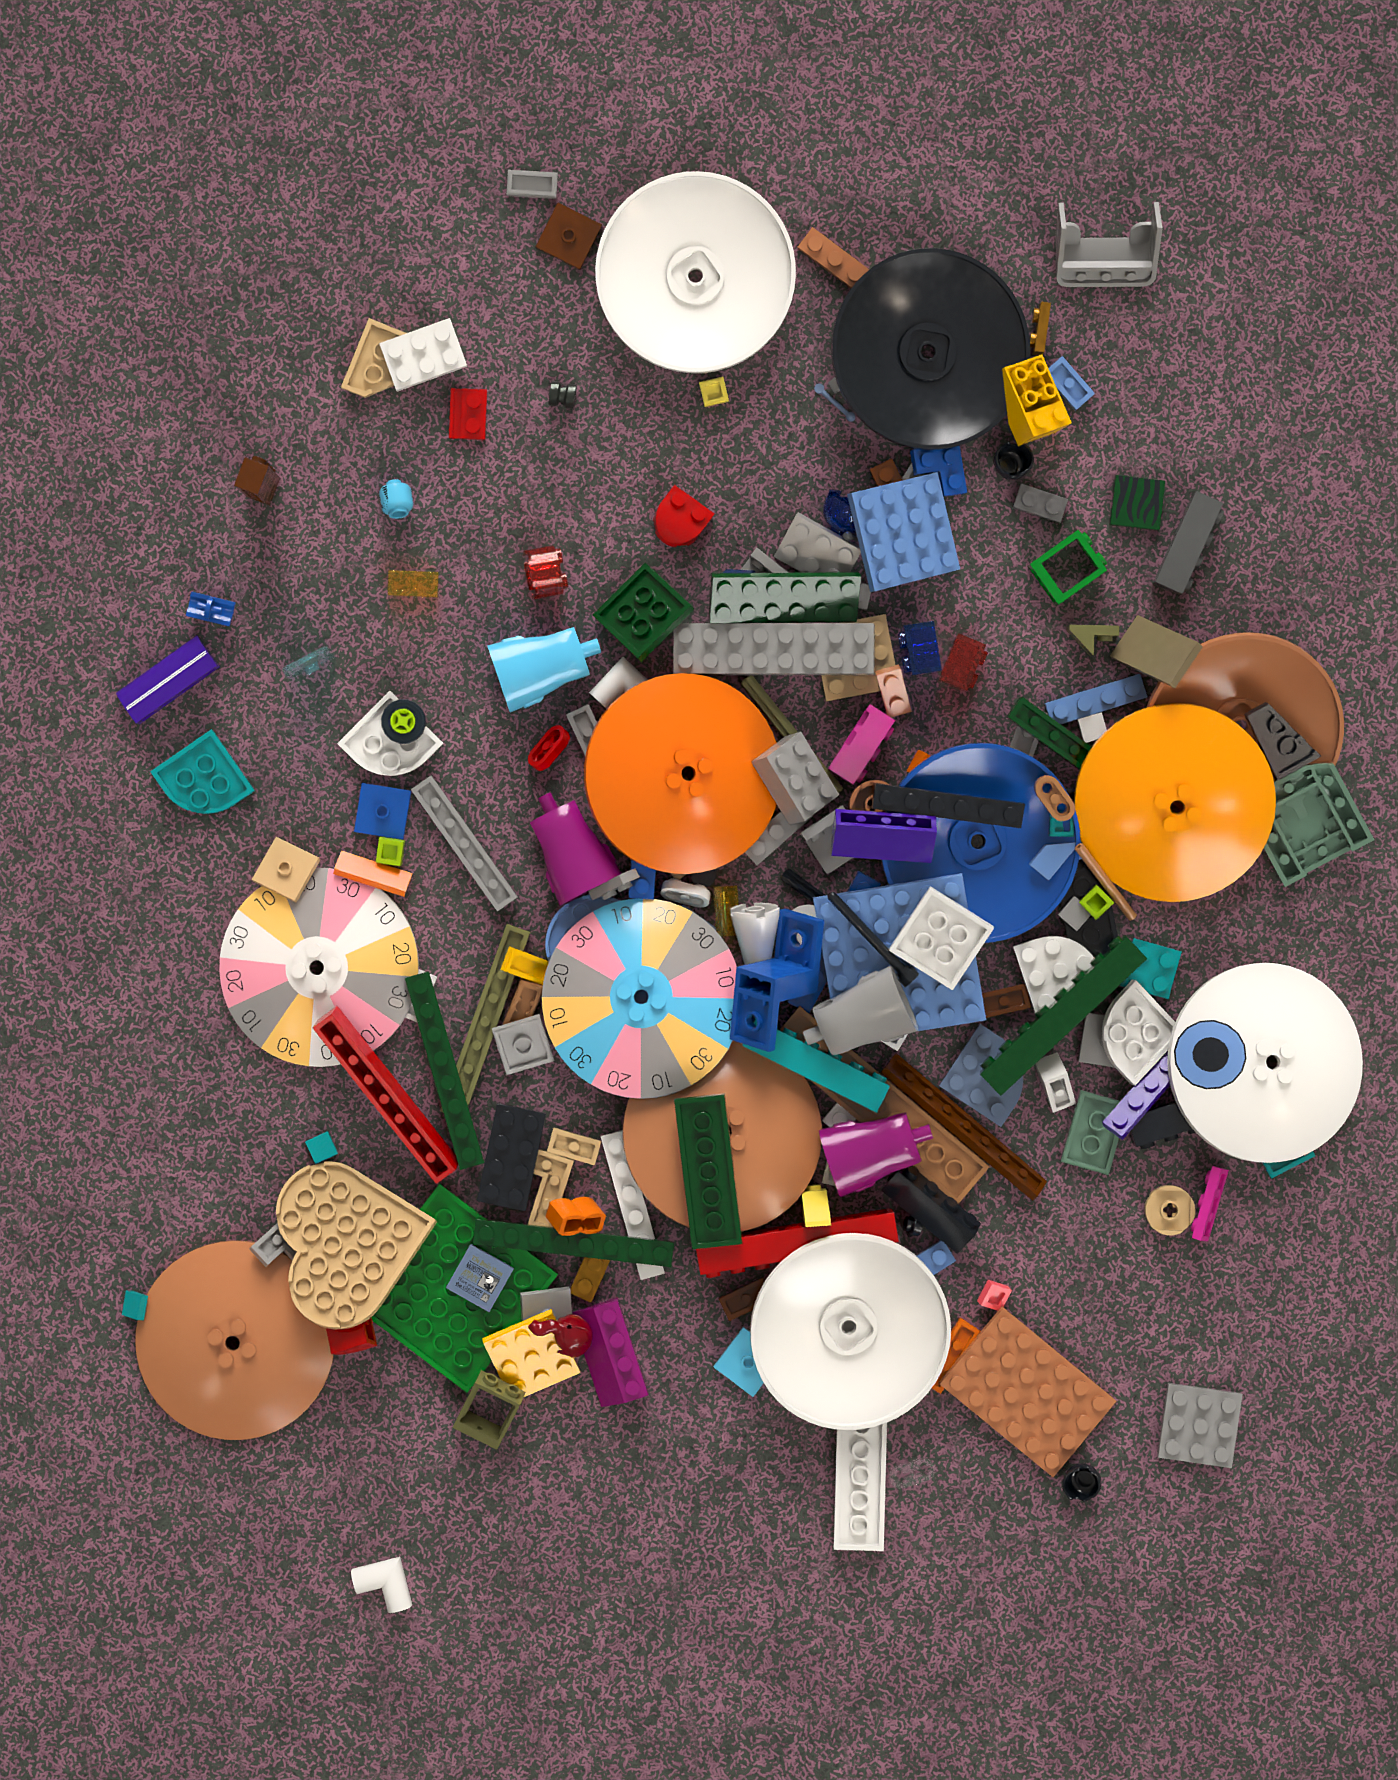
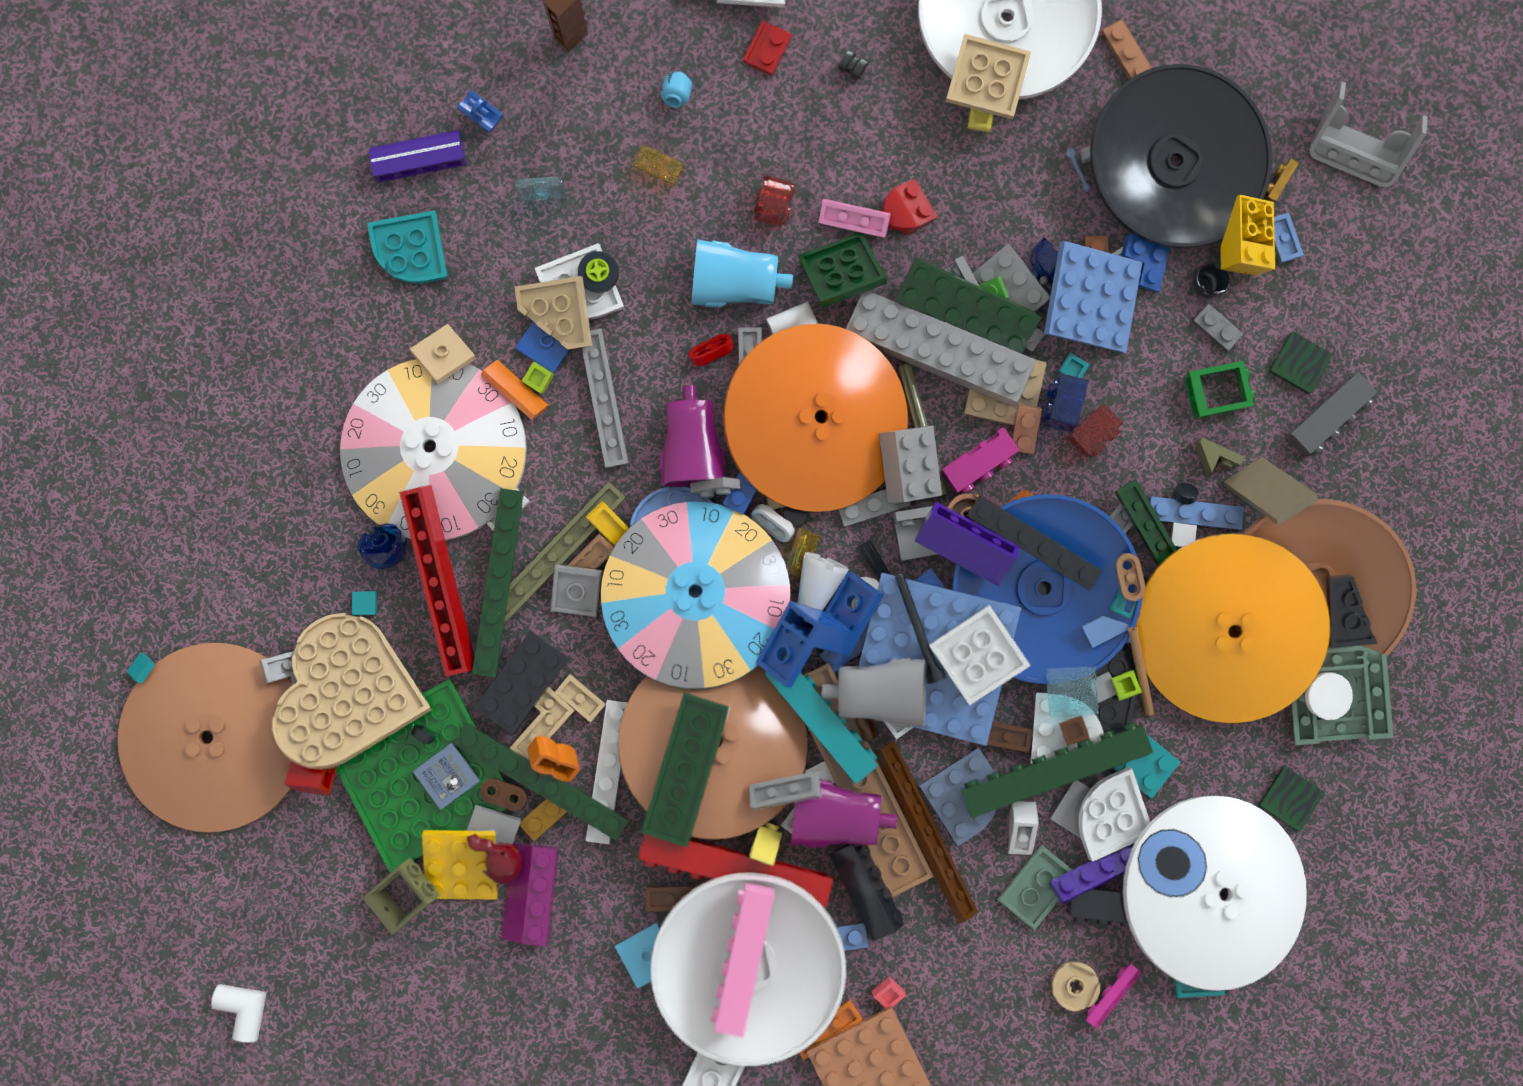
camera: 20 degrees right, 5 degrees down
(316, 1085) = (383, 546): none -> clear blue cylinder
(380, 777) = (558, 310): none -> tan plate
(439, 1248) = (423, 734): none -> black tile
(542, 1270) = (503, 794): none -> reddish brown plate
(632, 552) = (854, 218): none -> bright pink plate
(704, 355) = (988, 76): none -> tan plate
(802, 564) = (996, 286): none -> bright green plate
(811, 1150) = (784, 791): none -> light grey plate
(842, 1324) = (744, 959): none -> bright pink brick
(865, 1054) = (867, 728): none -> reddish brown tile
(912, 1226) = (842, 899): black plate -> none
(915, 607) = (1074, 366): none -> teal tile
(1046, 931) = (1072, 691): none -> clear light blue plate
(1064, 969) = (1074, 730): none -> reddish brown plate
(1077, 685) = (1186, 493): none -> black tile
(1296, 826) = (1329, 696): none -> white tile
(1303, 939) = (1291, 798): none -> dark green tile

